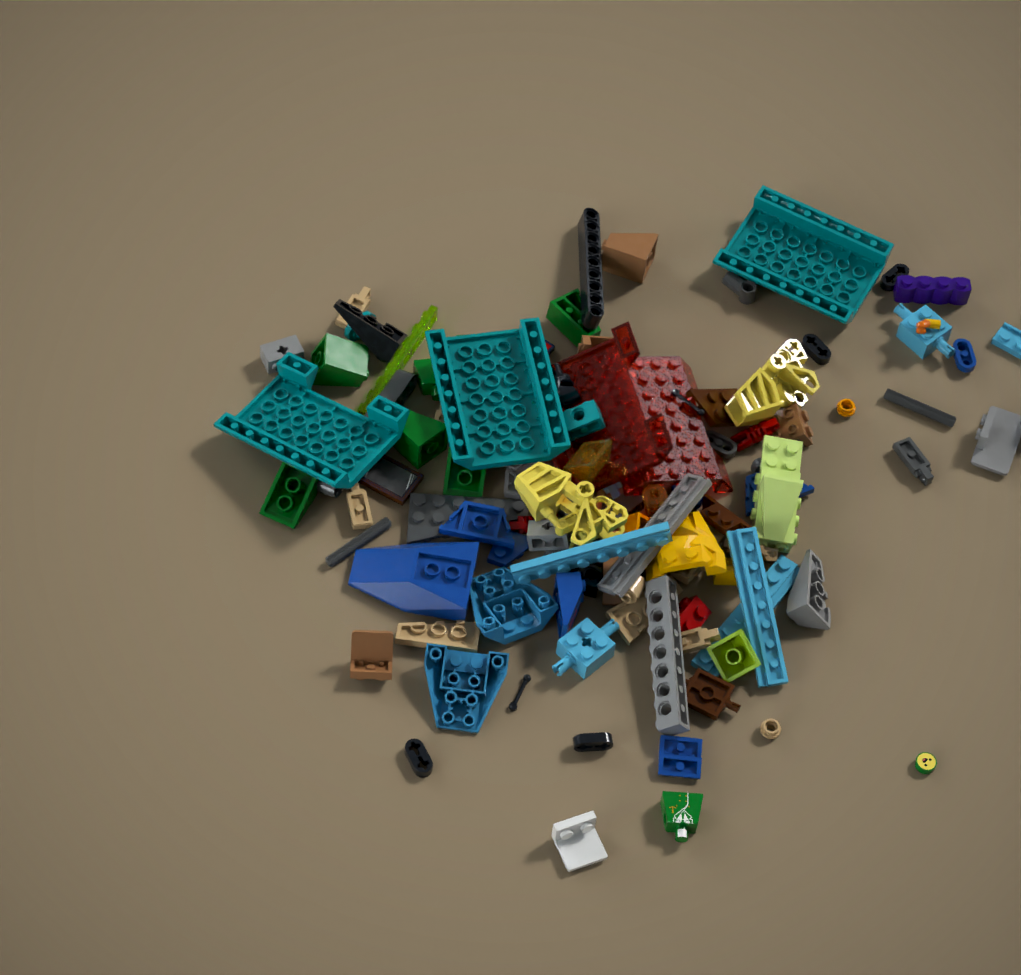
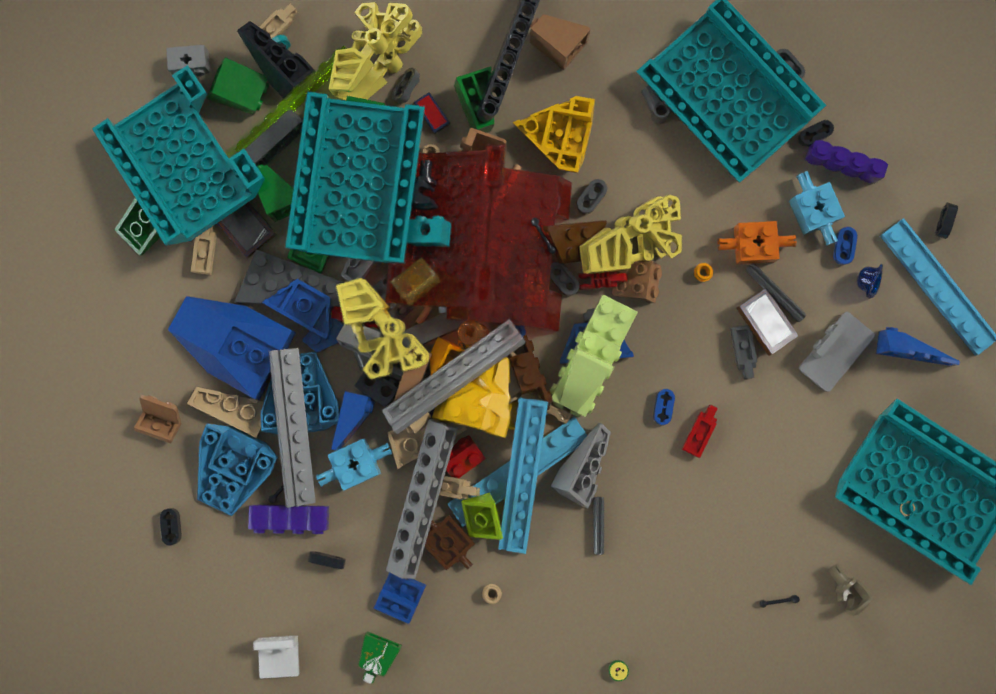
camera: 25 degrees right, 30 degrees up
(358, 542) = (192, 287): dark grey axle -> none
(460, 300) = (353, 71): none -> light yellow piece
(502, 321) = (405, 86): none -> dark grey plate
(514, 625) = (292, 427): none -> light grey plate
(536, 714) = (282, 518): none -> dark purple brick
(591, 553) = (391, 385): medium azure plate -> none
(666, 323) = (561, 131): none -> yellow wedge
(714, 374) = (591, 196): none -> dark grey plate
(815, 349) = (698, 198): black beam -> none
(847, 641) = (598, 525): none -> dark grey axle
(857, 526) = (659, 406): none -> blue beam
(883, 370) = (748, 251): none -> orange brick
(906, 536) = (701, 432): none -> red hinge
(923, 430) = (767, 322): none -> tile
(927, 323) = (818, 209): arm -> none
(998, 374) = (870, 279): none -> clear blue hat

